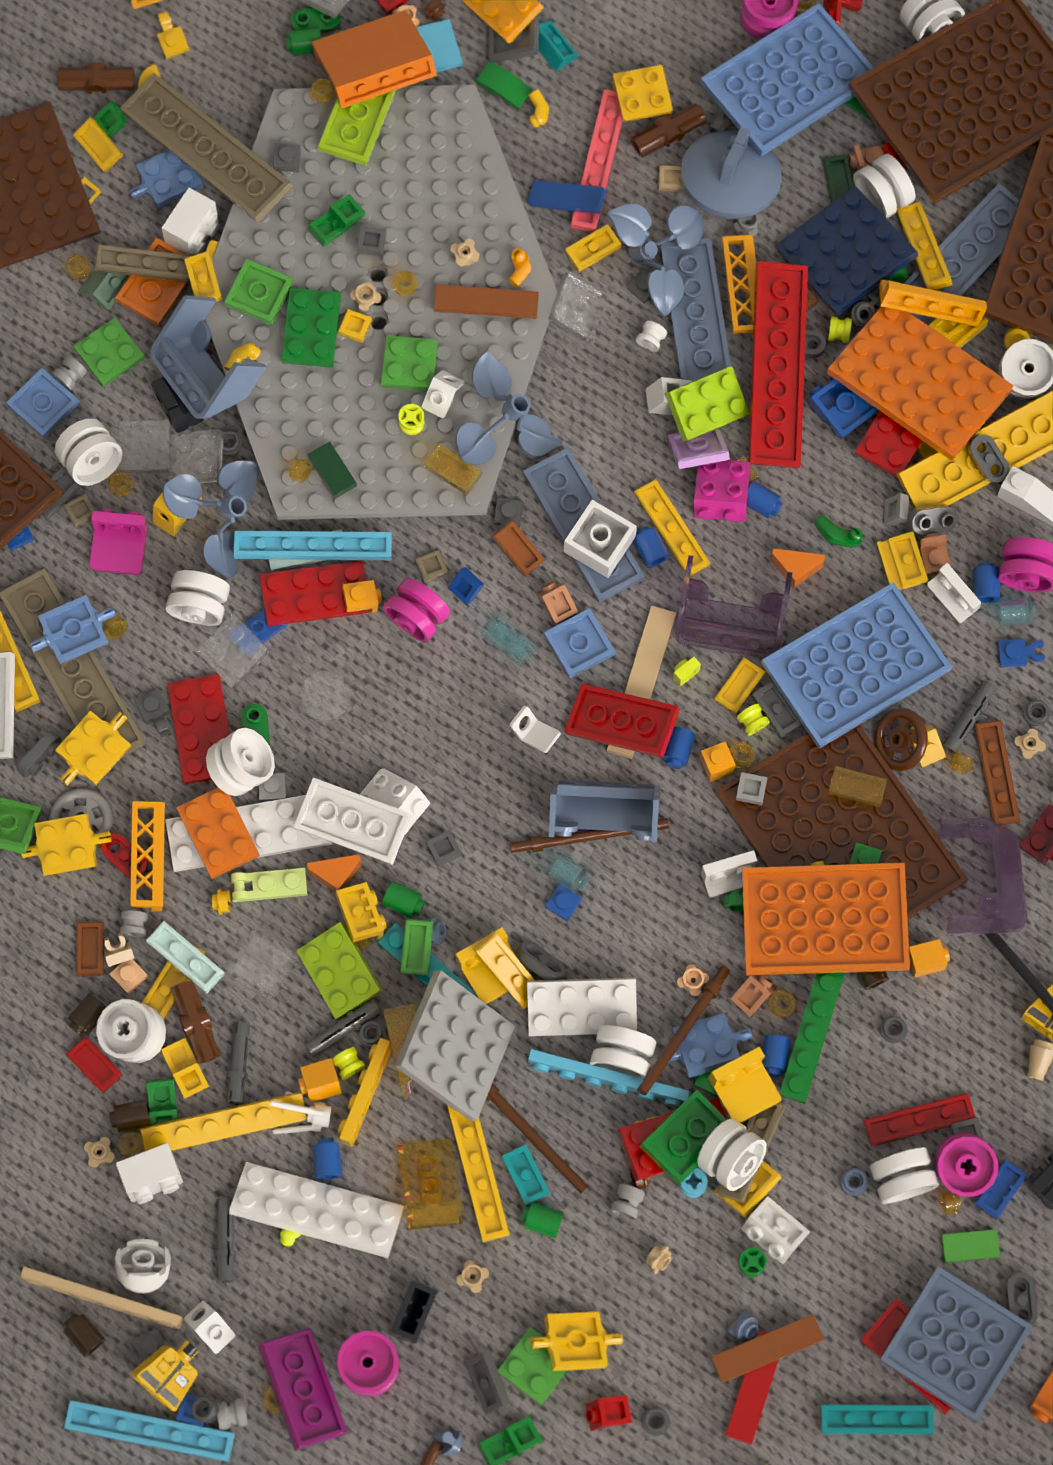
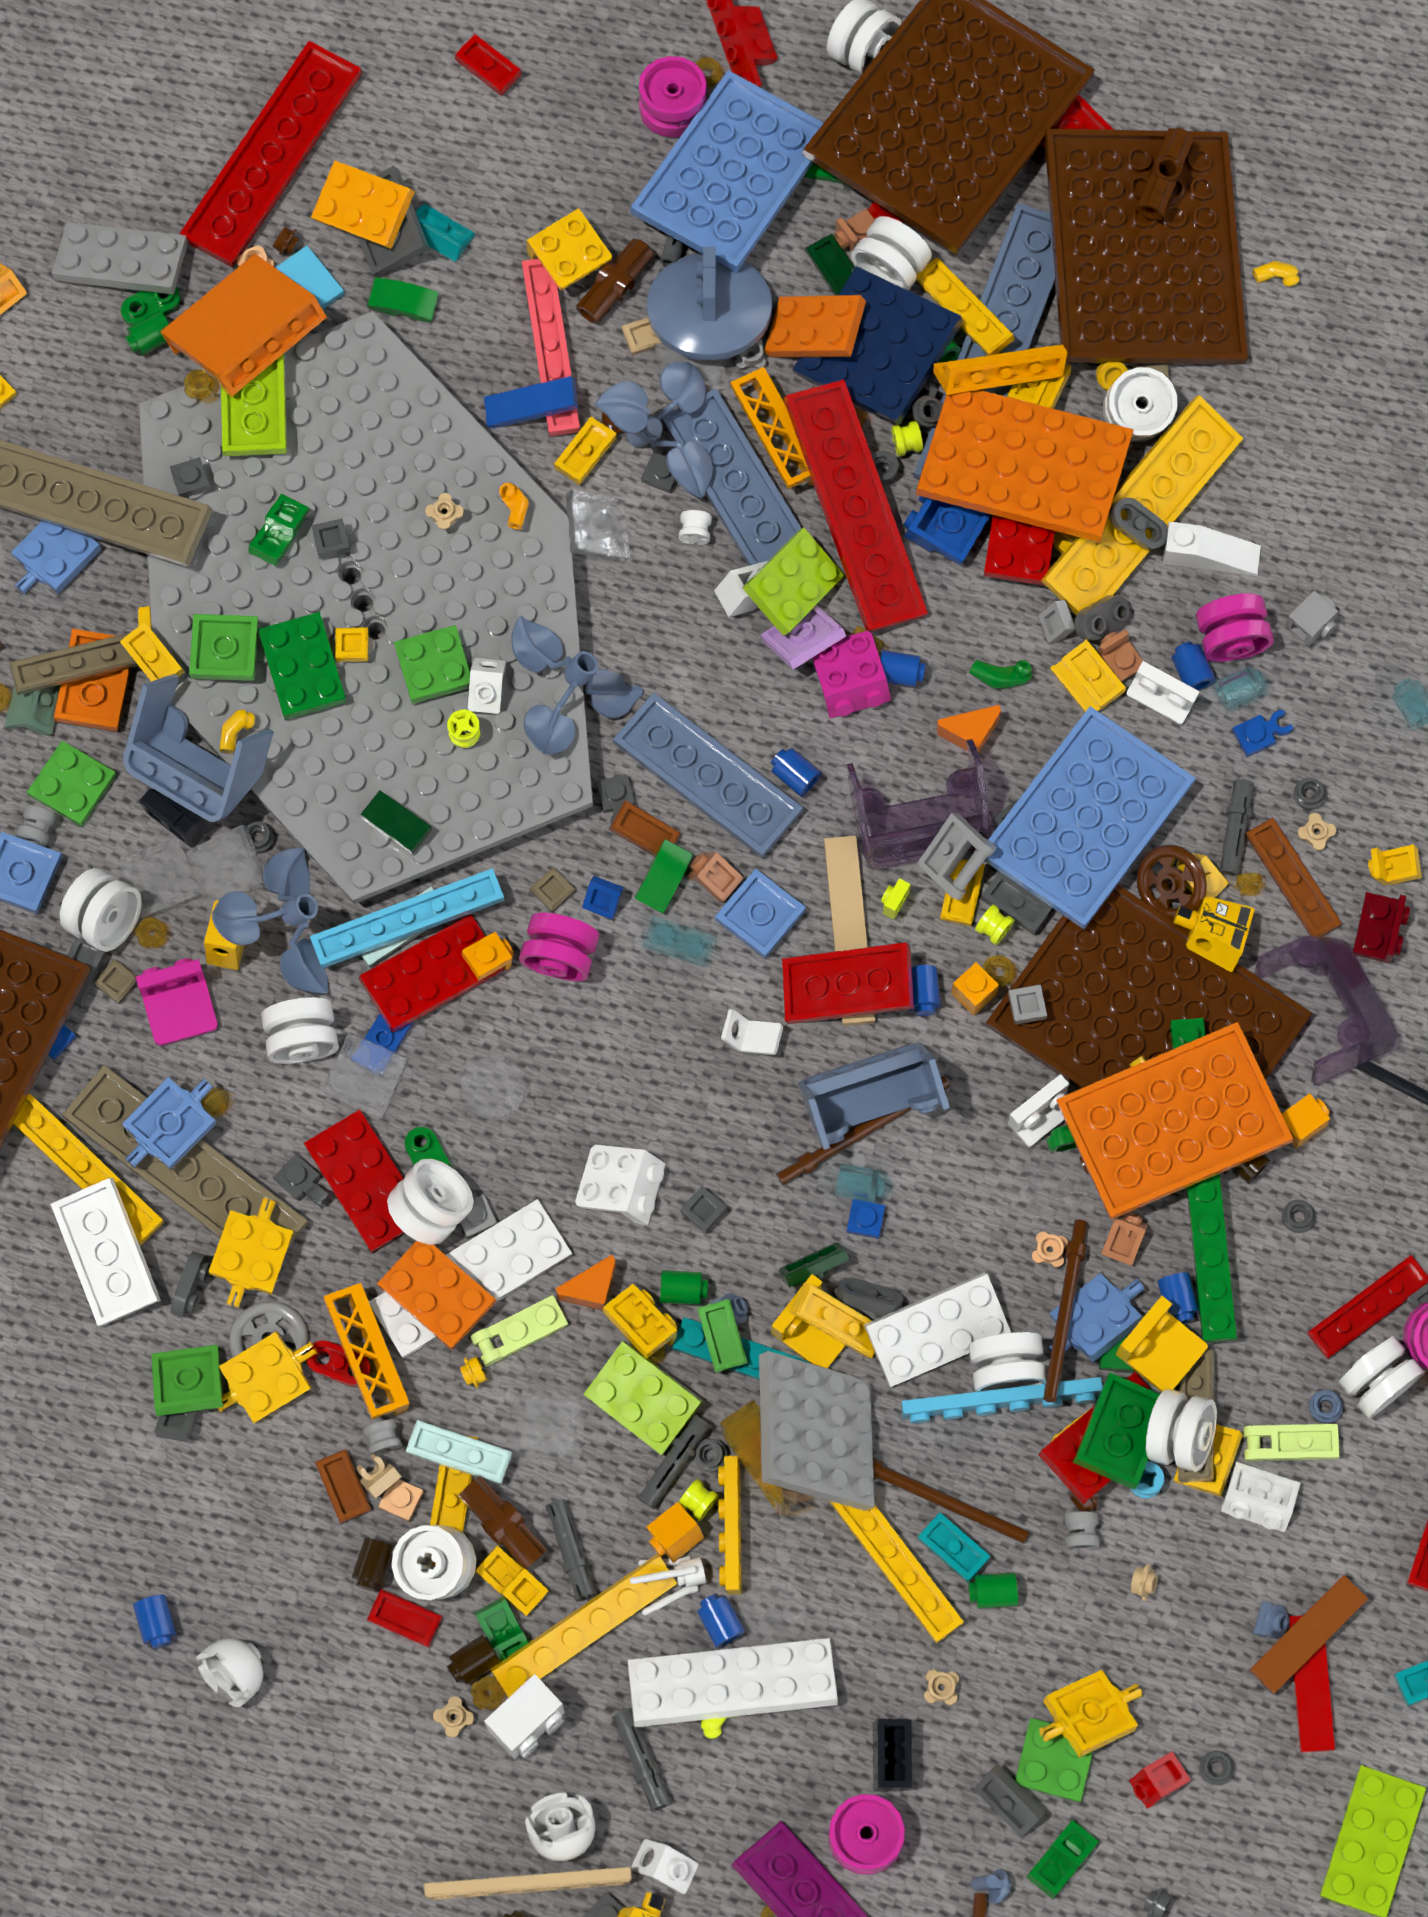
camera: 20 degrees left, 0 degrees up
(191, 223) = (109, 596): white brick -> none
(300, 470) = (359, 836): clear yellow plate -> none
(352, 821) = (589, 1219): white plate -> none
(365, 289) = (348, 596): tan plate -> none
(403, 276) = (385, 565): clear yellow plate -> none
(430, 1184) = (849, 1601): clear yellow slope -> none
(452, 469) = (535, 768): clear yellow plate -> none
(486, 301) = (492, 559): dark orange tile -> none
(509, 921) = (814, 1263): none -> dark green plate
(518, 587) = (663, 876): none -> green slope
(541, 109) = (458, 311): yellow arm -> none
(600, 538) = (737, 784): white brick -> none
(671, 526) = (807, 738): yellow tile -> none
(739, 650) = (949, 849): none -> light grey plate
(756, 1259) = (1253, 1538): green wheel -> none
(782, 995) = (1161, 1226): clear yellow plate -> none
(804, 218) = (815, 326): none -> orange plate
(816, 1198) = (1292, 1442): none -> yellowish green plate
(857, 786) = (1145, 955): clear yellow plate -> none
(920, 788) = (1216, 930): none -> yellow torso

